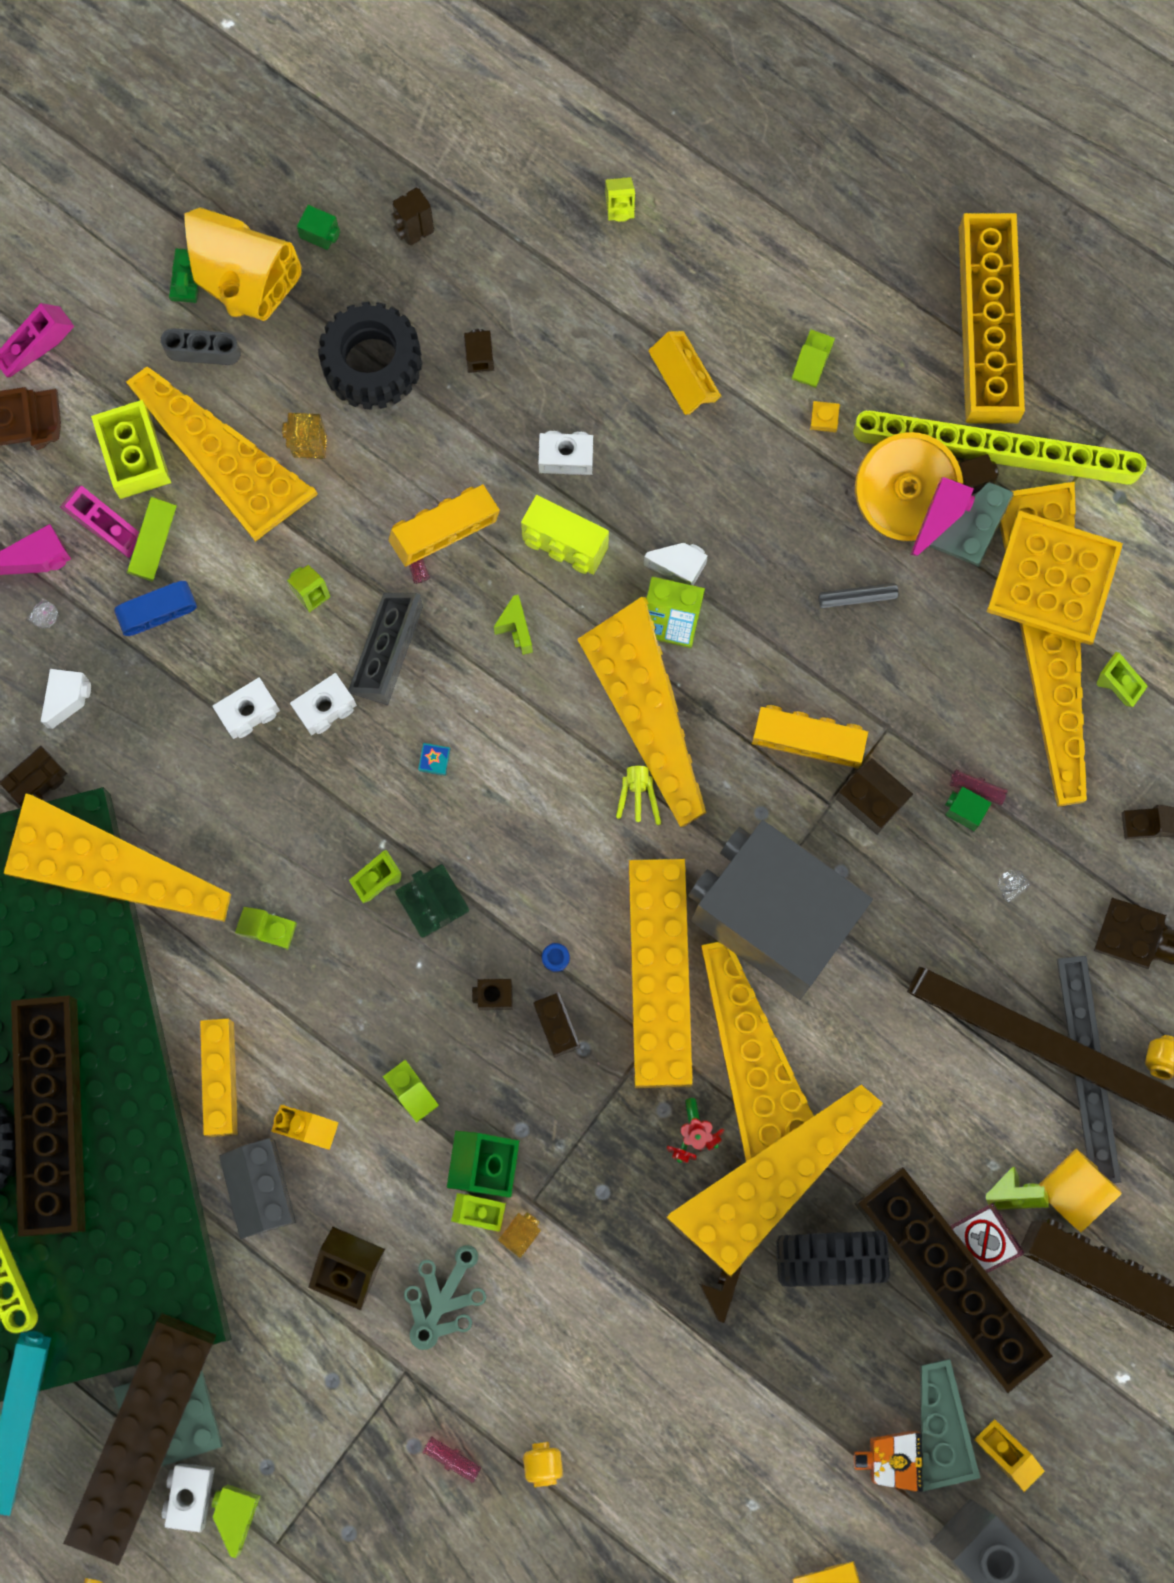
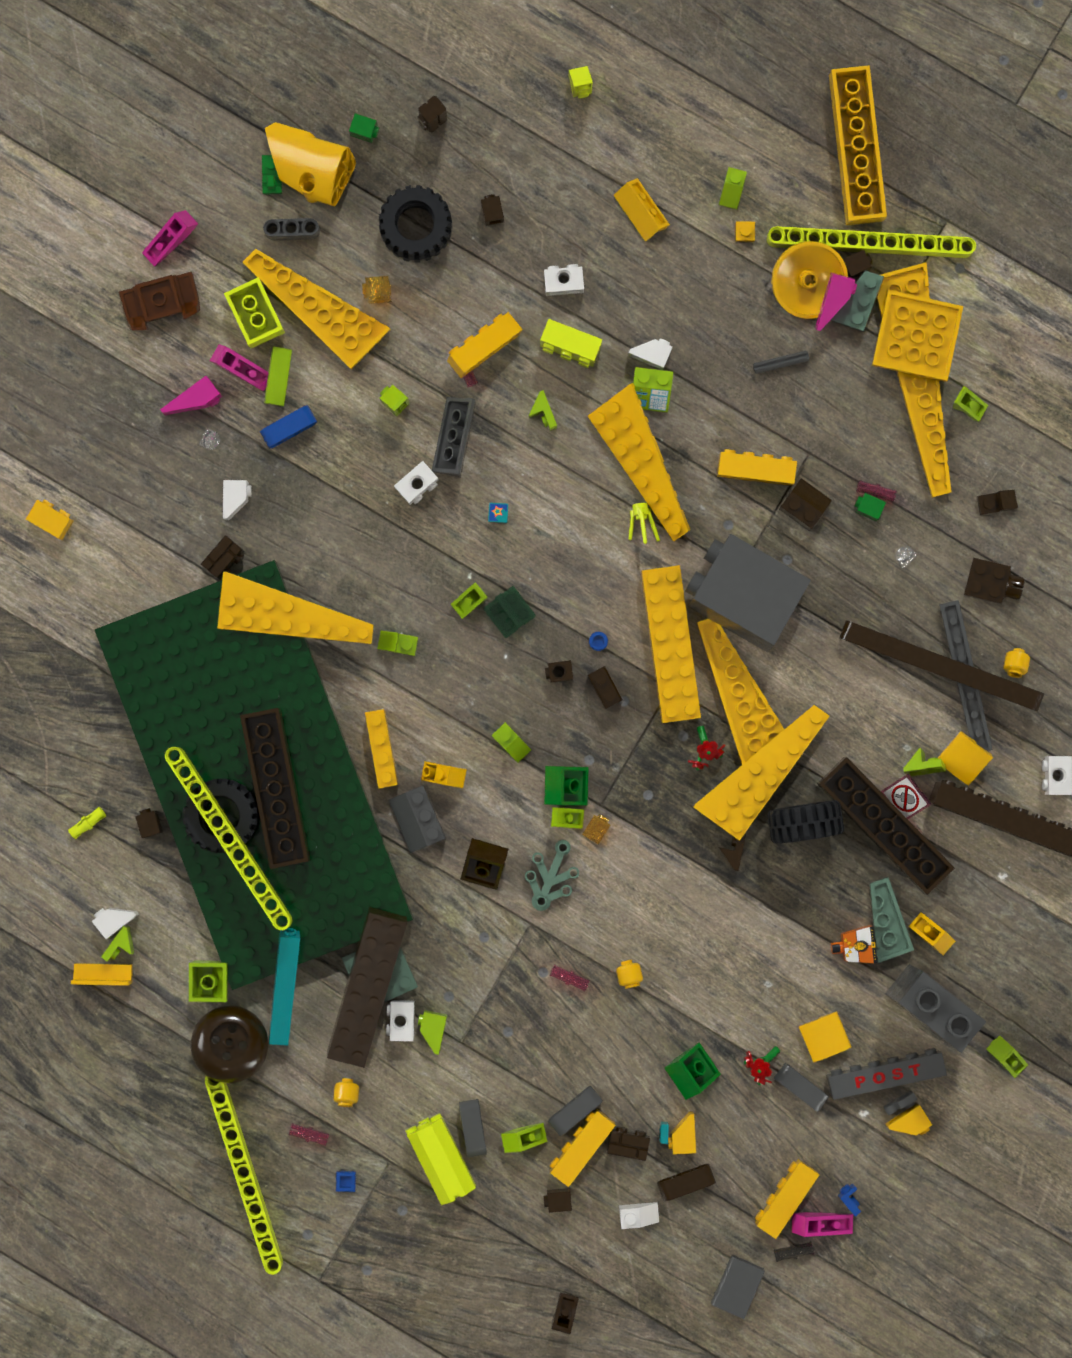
camera: 10 degrees left, 10 degrees up
(252, 694) = (369, 482): white brick -> none

